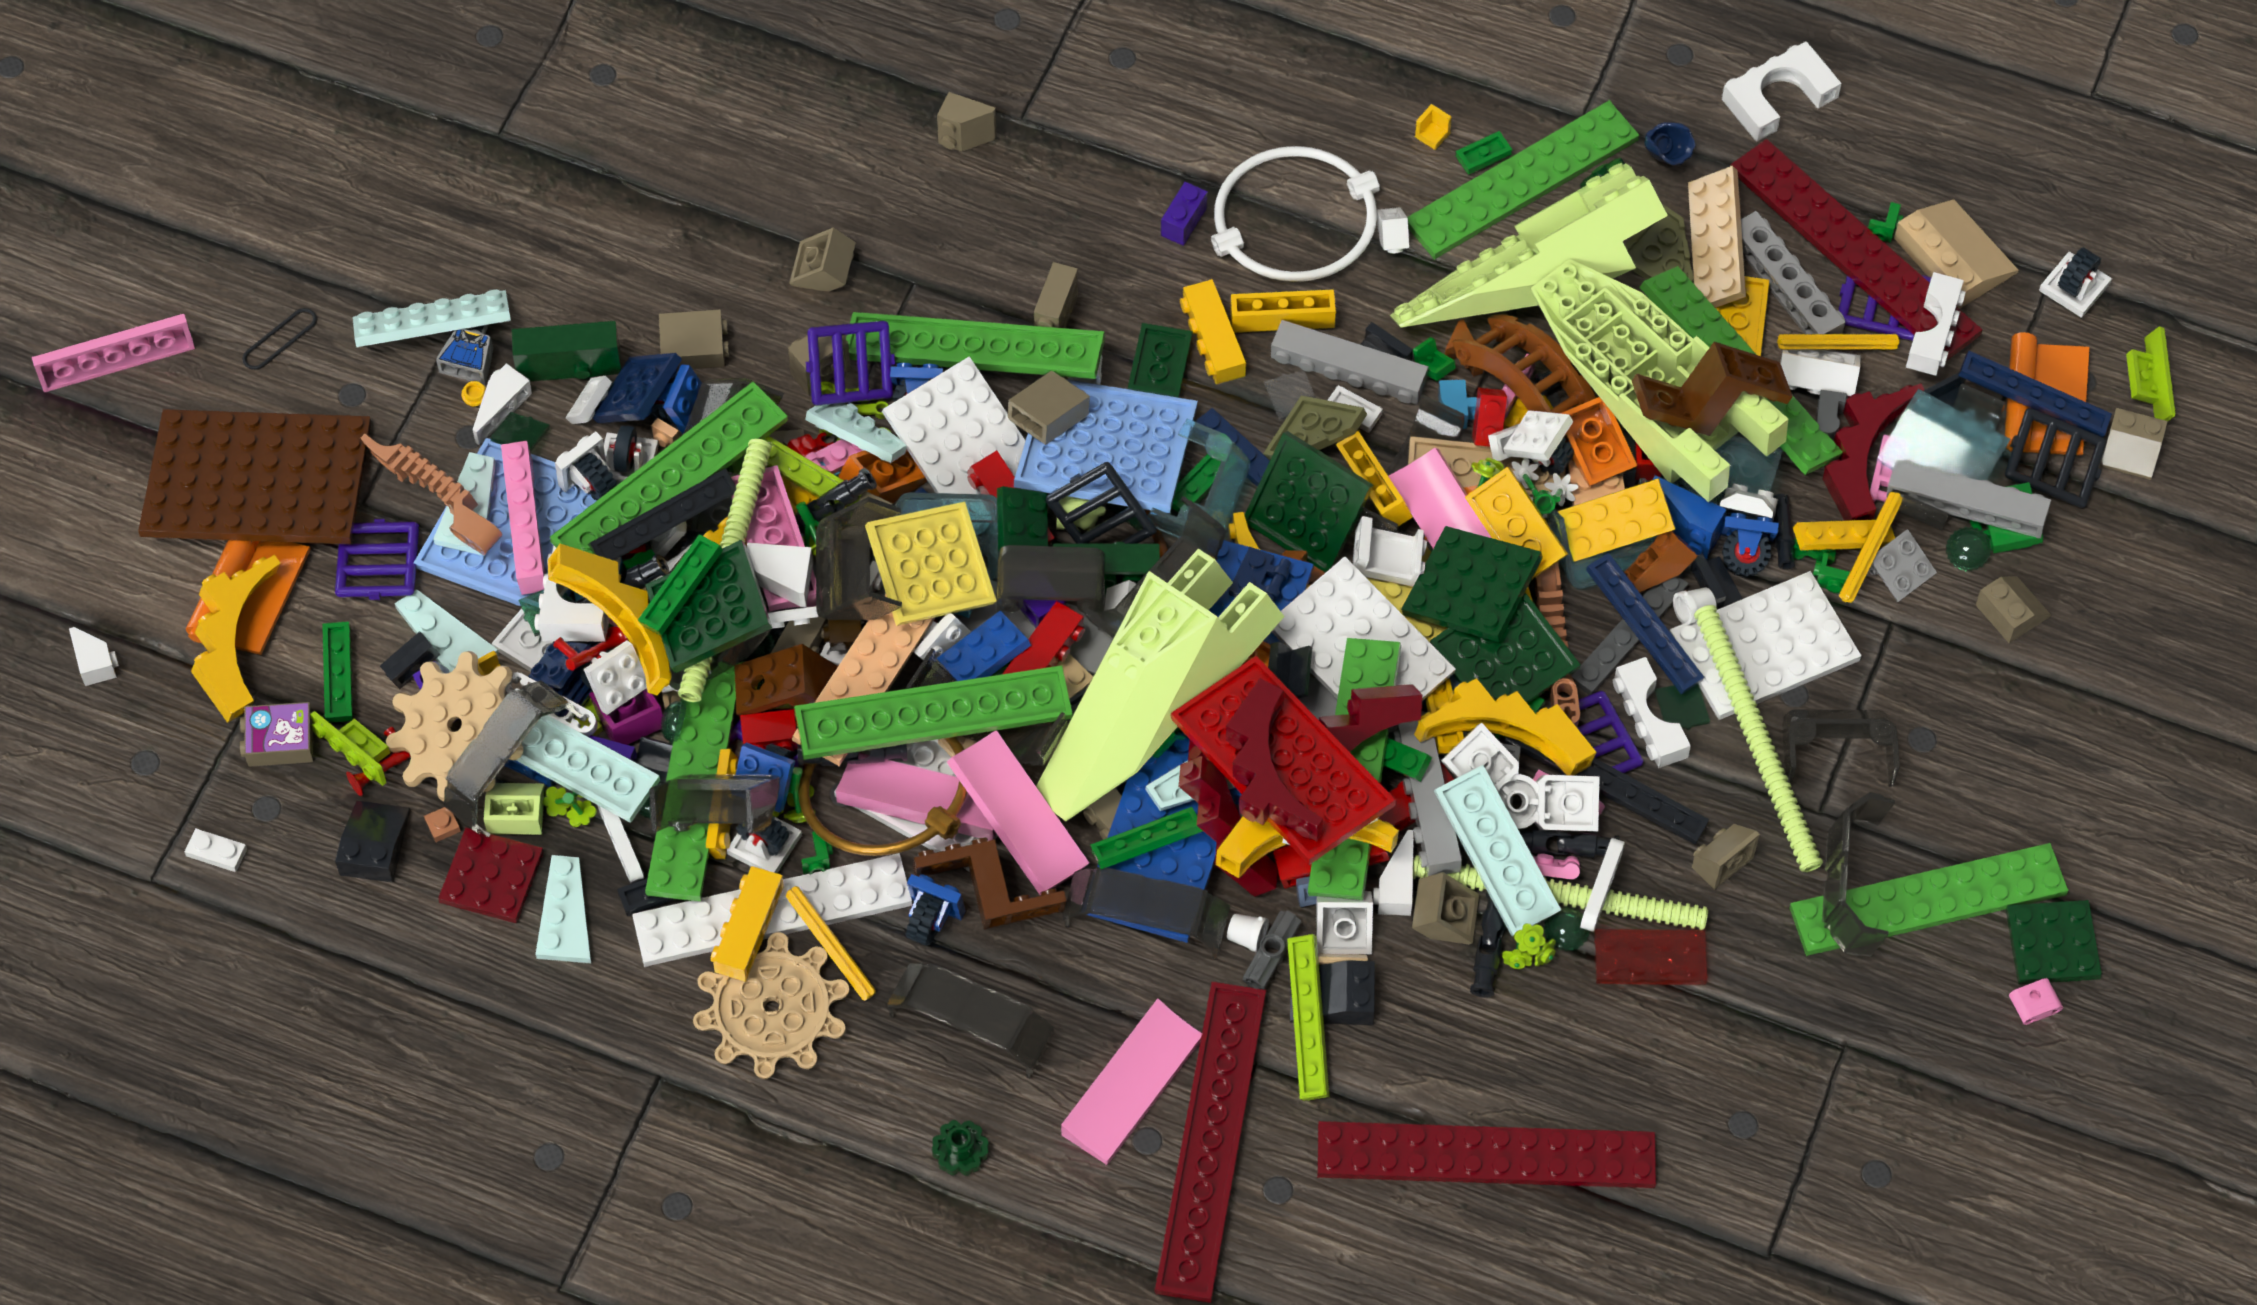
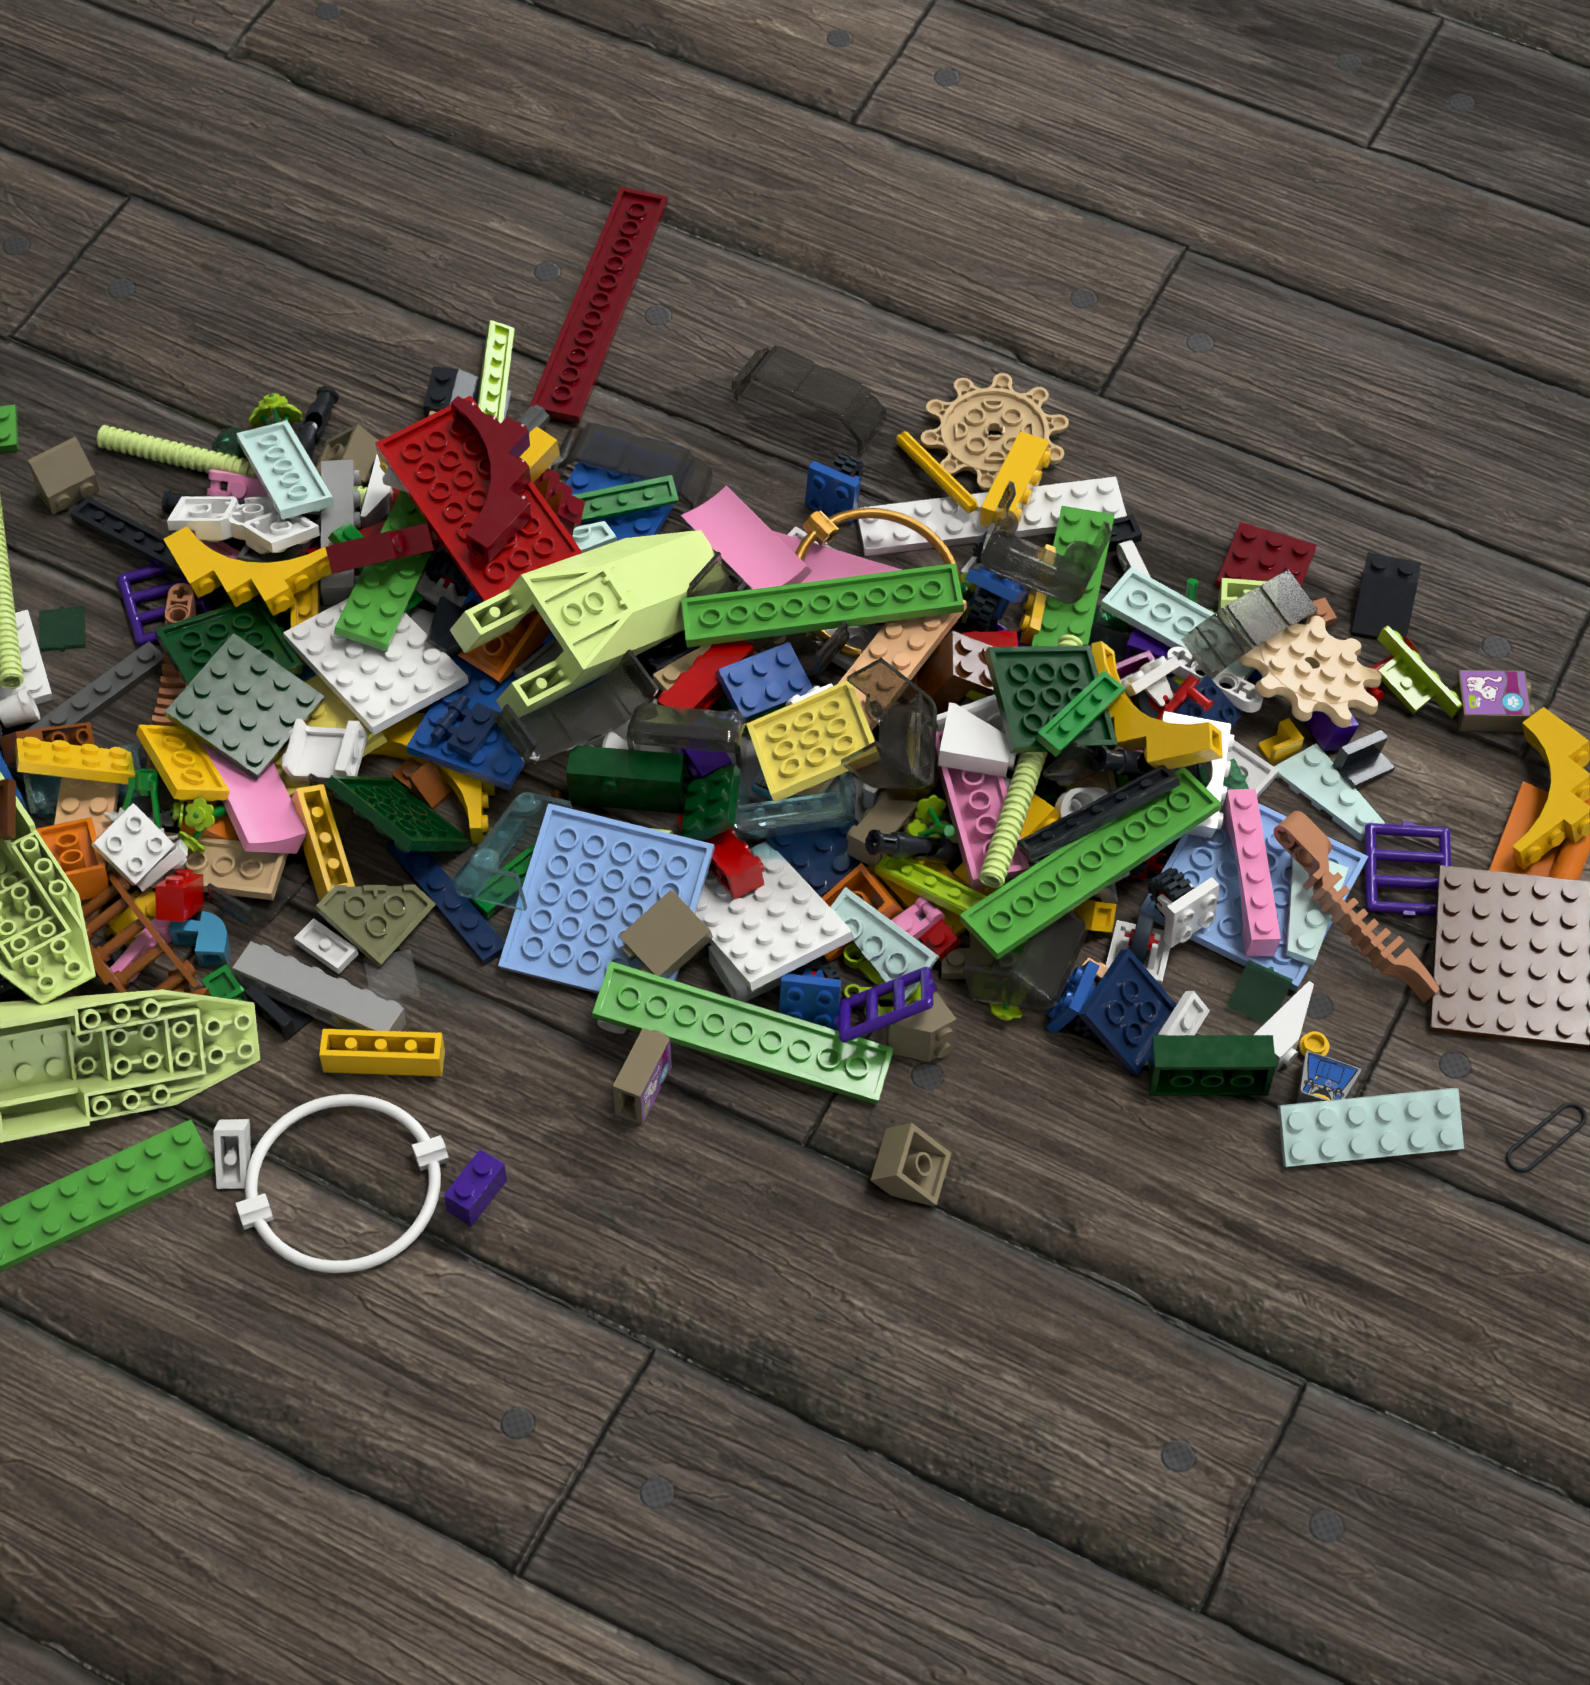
camera: 175 degrees left, 5 degrees down
(215, 850) = (1541, 608): white plate -> none
(337, 672) = (1438, 759): green plate -> none
(563, 920) = (1193, 524): light aqua wing -> none
(695, 337) = (1065, 1082): dark tan brick -> none
(821, 860) = (952, 541): green bracket -> none
(960, 1147) = (827, 311): dark green plant -> none
(965, 123) = (726, 1316): dark tan slope -> none
(989, 883) = (771, 477): reddish brown bracket -> none
(1119, 488) = (624, 814): black bar -> none
(1131, 1083) = (665, 352): bright pink arch -> none
(1160, 360) = (532, 1017): dark green plate -> none
(1213, 331) = (465, 1044): yellow brick -> none
(1433, 127) = (153, 1279): yellow panel -> none
(1483, 152) = (99, 1242): green plate -> none
(1486, 1154) = (356, 278): dark red plate -> none
(1602, 884) = (190, 447): white beam -> none
(1645, 623) = (76, 685): dark blue plate -> none
(1650, 957) = (165, 415): clear red plate -> none
(1664, 740) = (100, 638): white arch -> none

